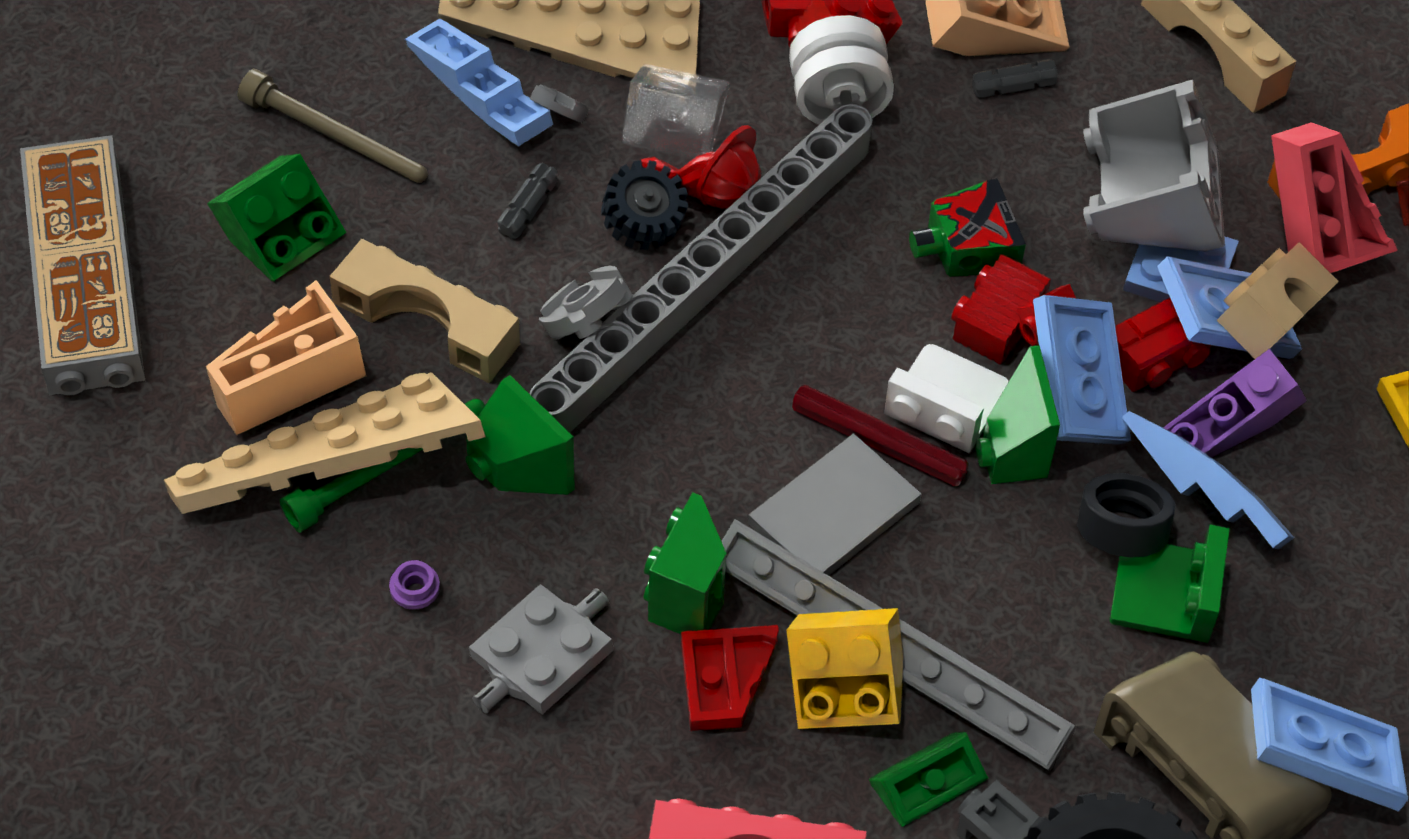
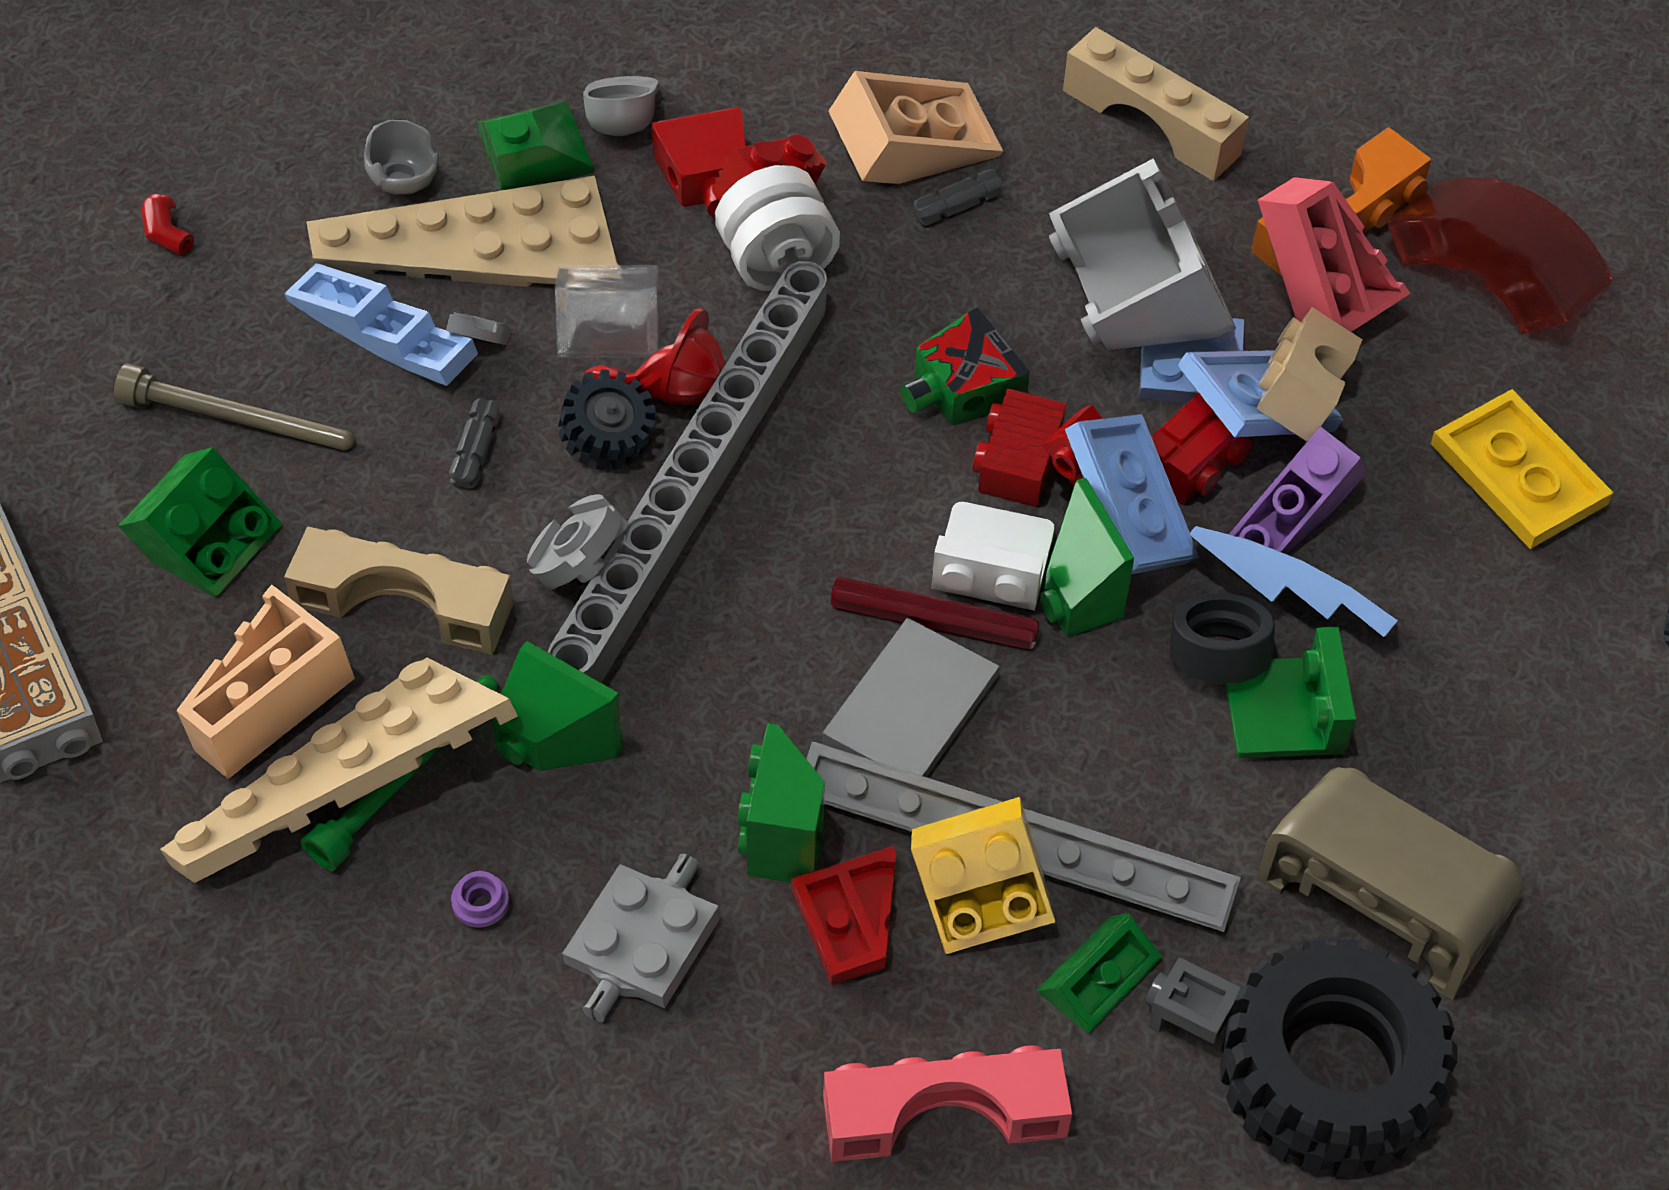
camera: 15 degrees left, 0 degrees up
(1328, 744) = (1506, 832): light blue tile -> none

